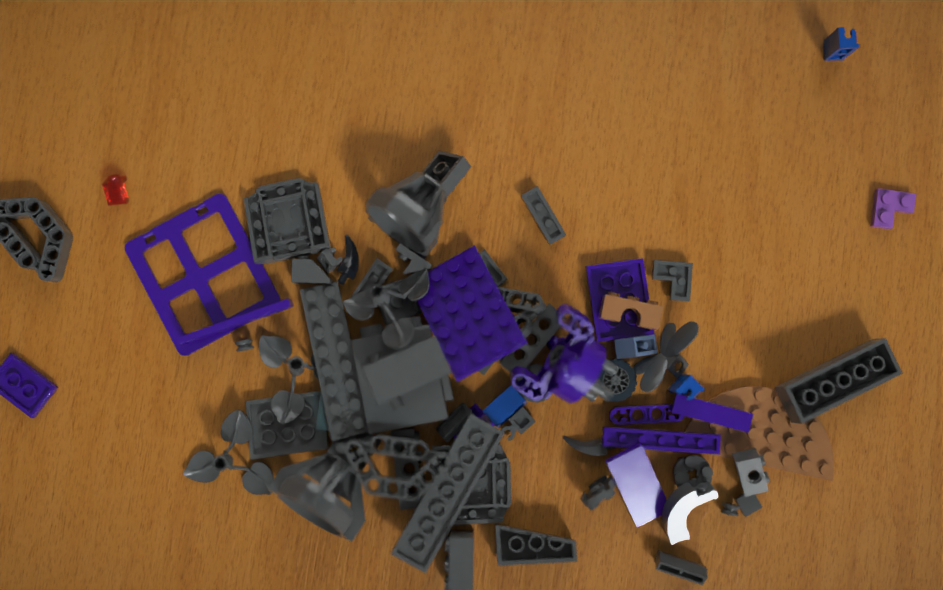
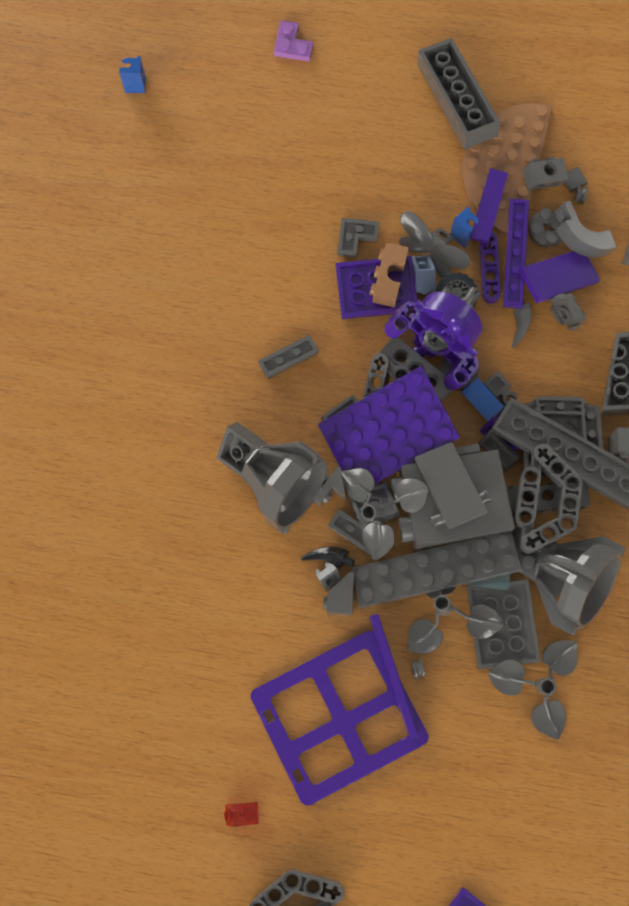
camera: 90 degrees left, 10 degrees down
(286, 221) = (284, 620): dark grey wedge -> none

